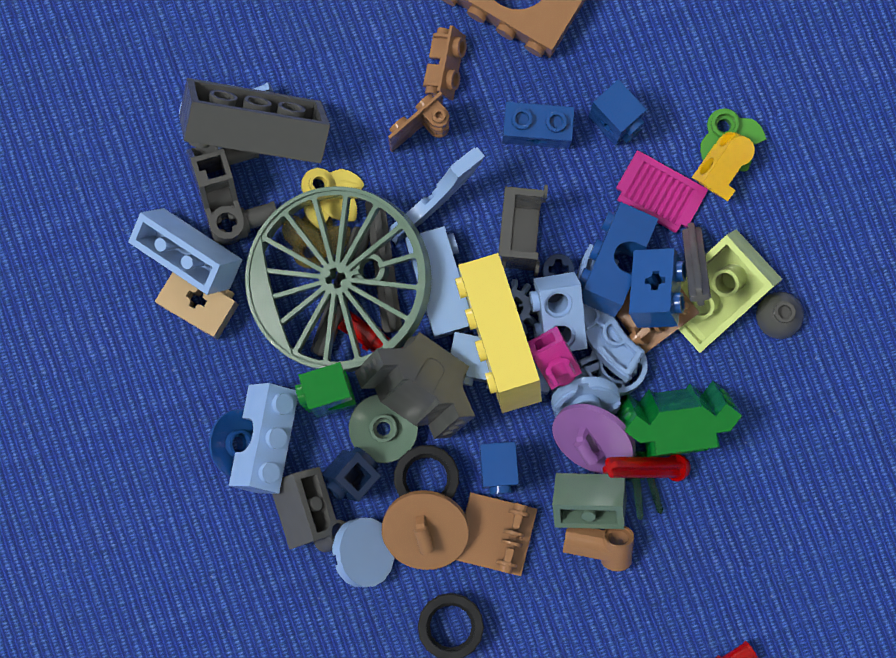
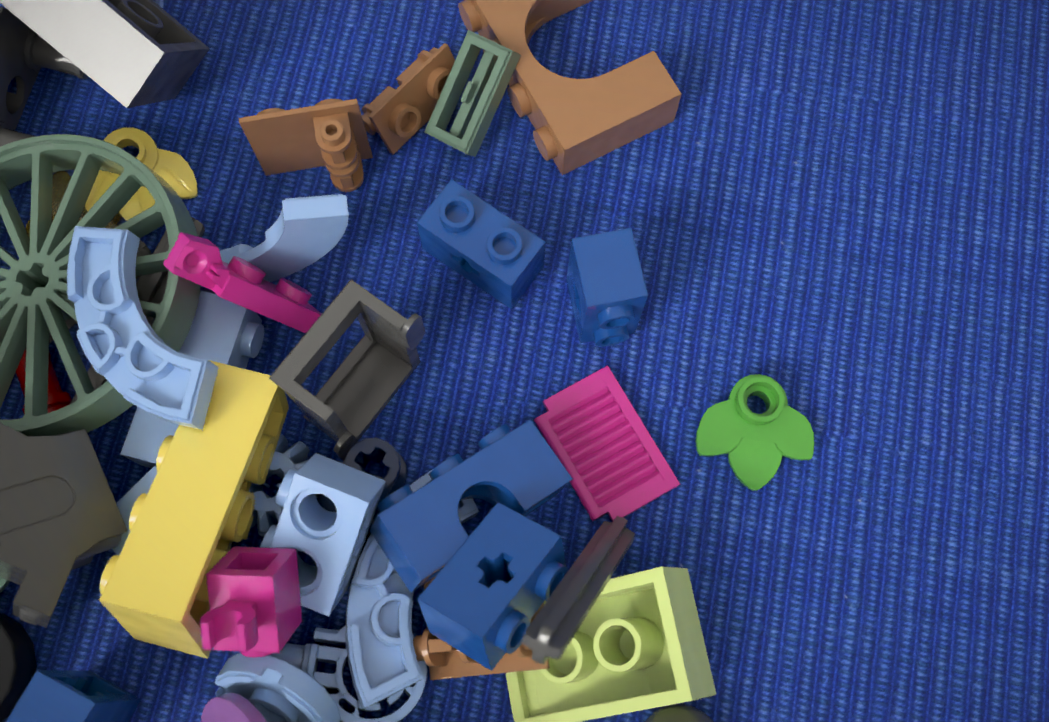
camera: 30 degrees right, 10 degrees down
(409, 278) = (121, 339): none -> light blue tile
(444, 218) = (241, 282): none -> dark pink hinge
(480, 16) = (479, 97): none -> sand green tile
(723, 163) = (725, 455): yellow leg -> none

